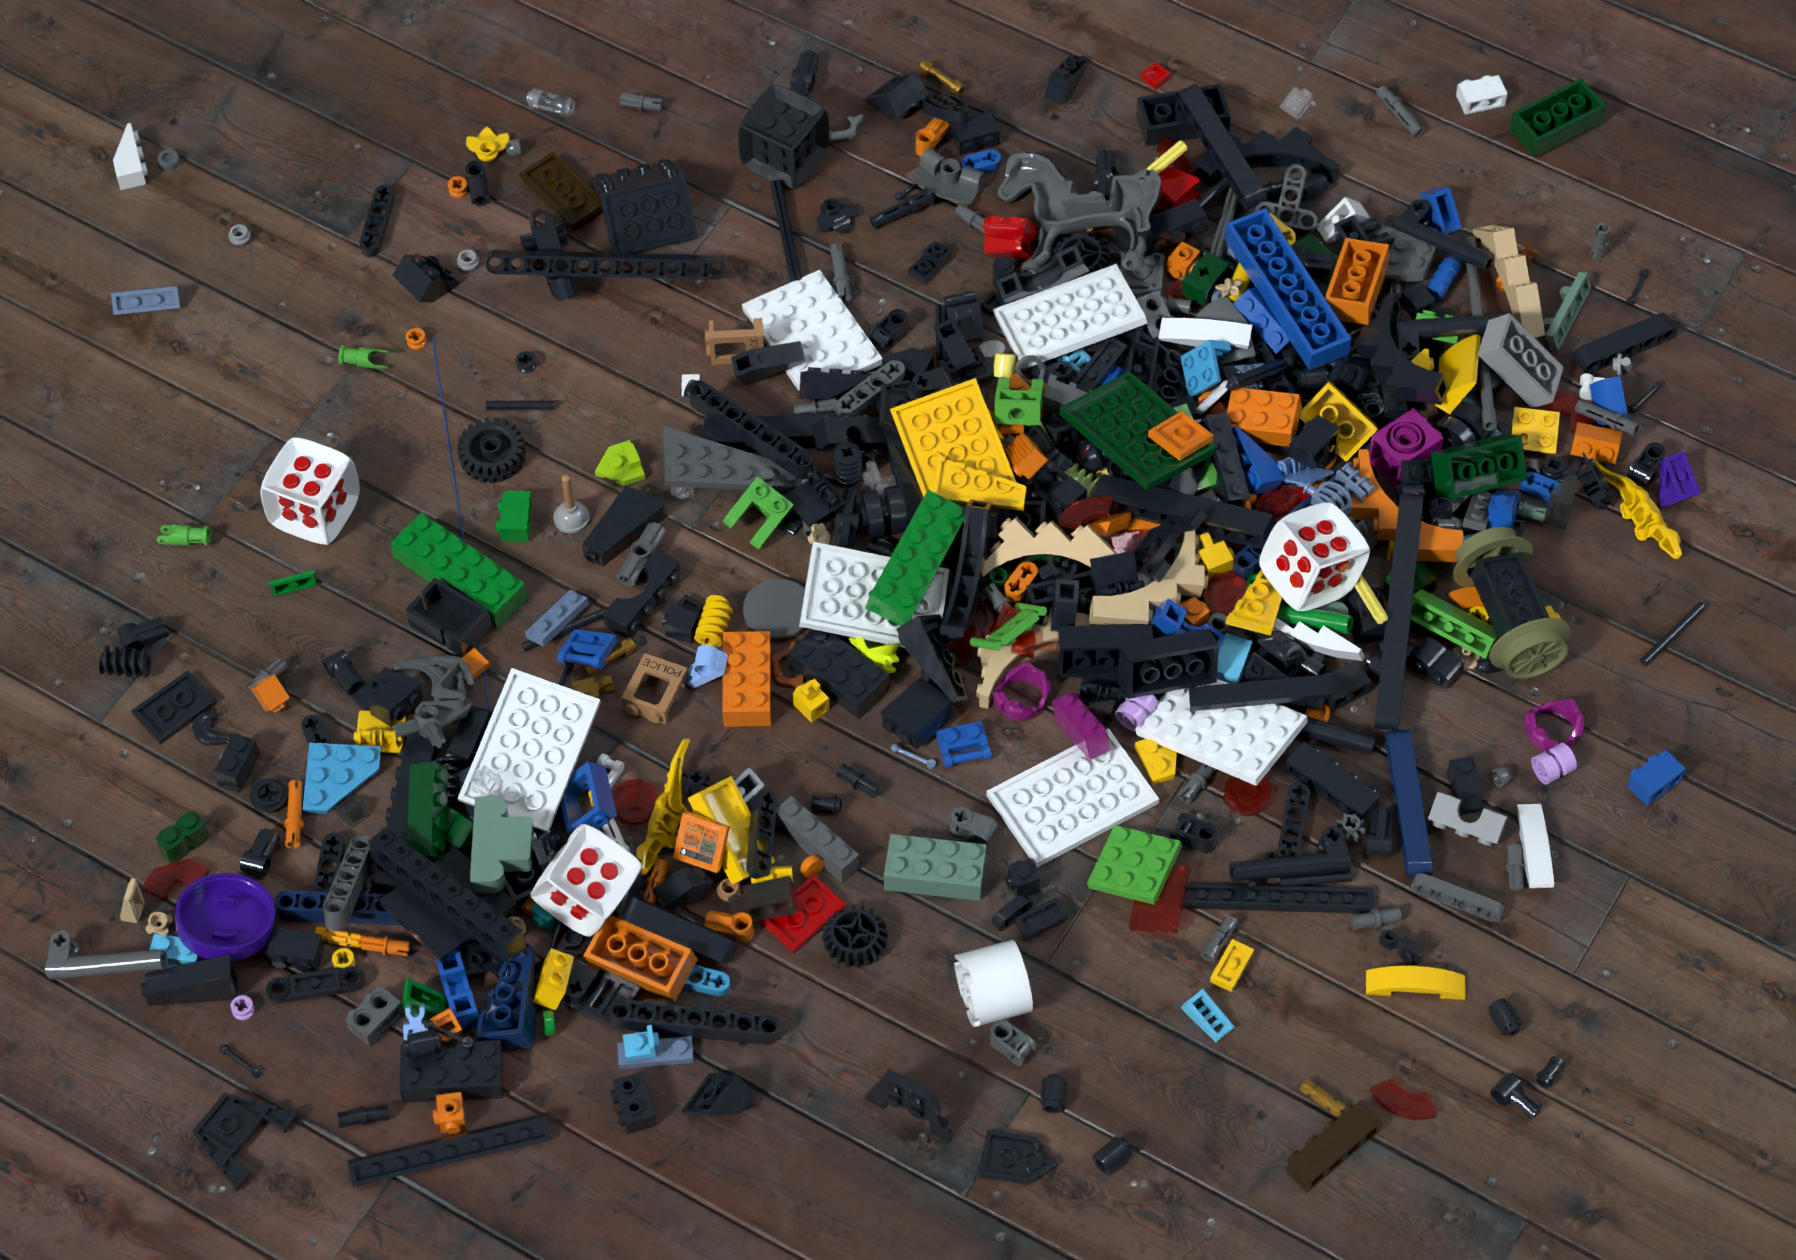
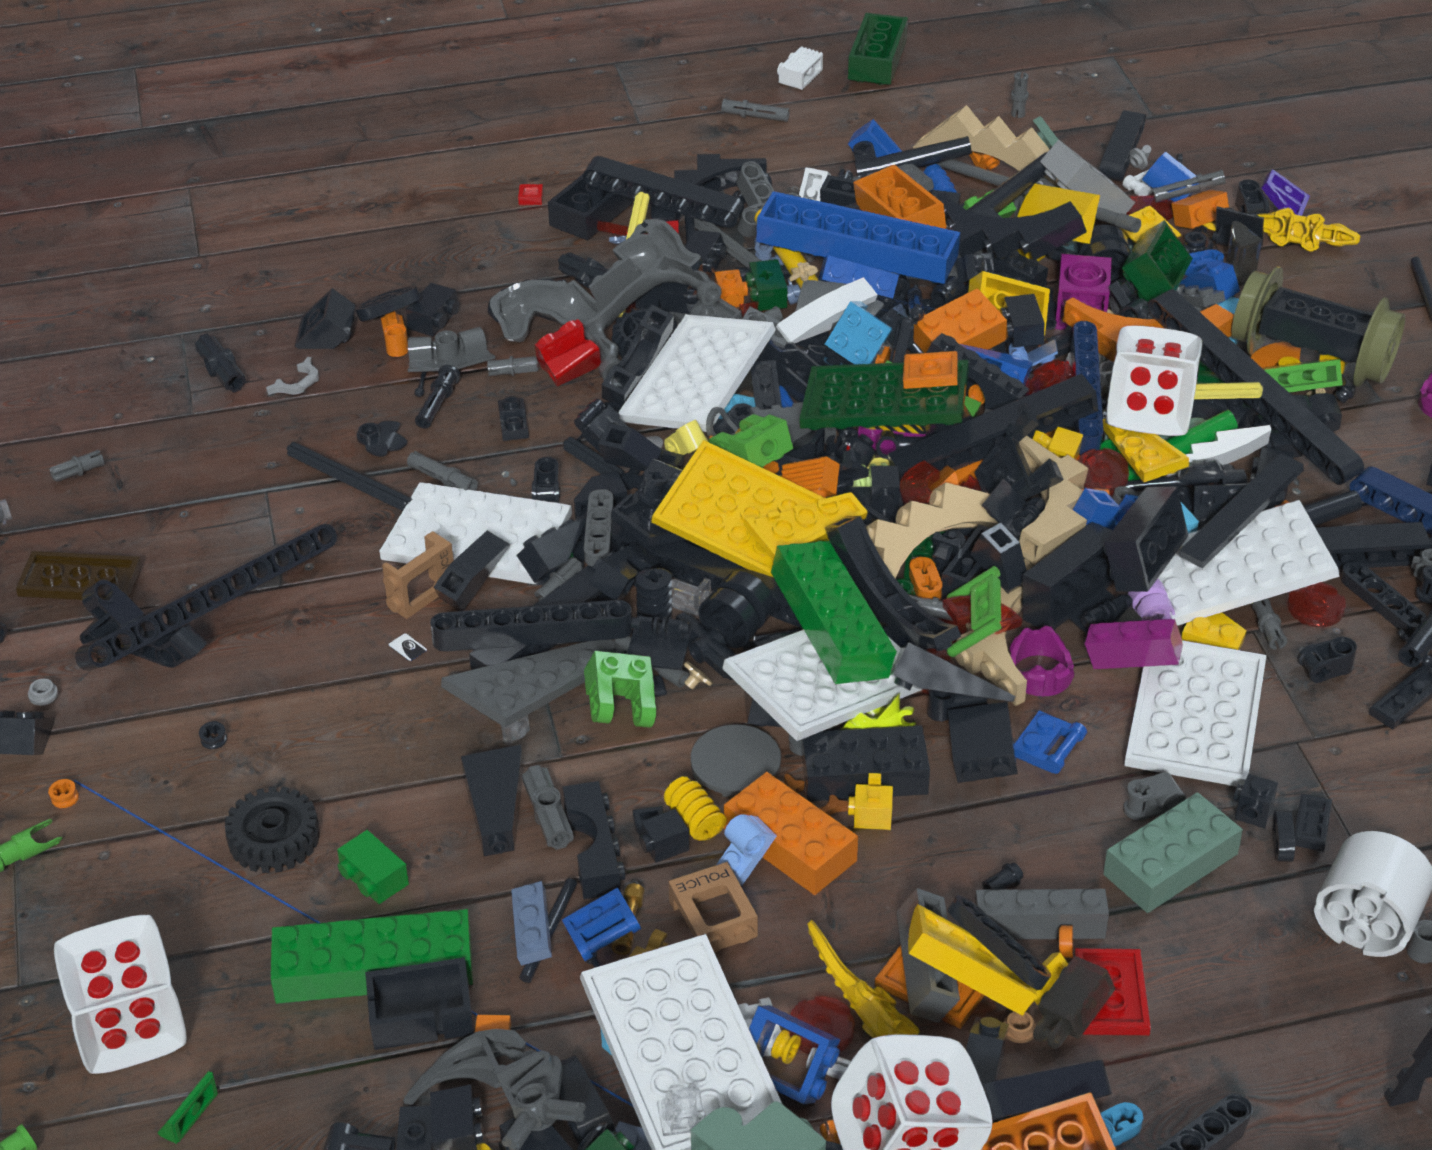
camera: 45 degrees left, 15 degrees down
(519, 405) = (251, 775): black bar -> none
(548, 845) = (824, 1121): black plate -> none
(570, 515) = (426, 827): light grey piece -> none
(621, 464) = (425, 749): lime plate -> none
(645, 206) = (192, 527): black bracket -> none
(696, 782) = (867, 958): black gear -> none
(701, 842) = (966, 987): orange tile -> none
(729, 924) = (1067, 1051): orange piece -> none
(783, 136) = (266, 397): black piece -> none
(845, 926) = (1187, 976): black gear -> none
(858, 780) = (1004, 838): black axle -> none
(929, 68) = (369, 291): pearl gold bar -> none
(931, 763) = (1041, 779): sand blue hinge -> none
(980, 162) = (464, 321): blue beam -> none
(1002, 267) = (591, 382): black brick -> none
(1065, 79) = (461, 233): black slope -> none
(1134, 864) = (1322, 718): bright green plate -> none
(1167, 911) = (1376, 728): clear red tile -> none
(1297, 102) = (671, 147): clear bracket -> none
(1334, 492) = (1097, 337): sand blue piece -> none
(1643, 275) = (1068, 105): black hinge -> none

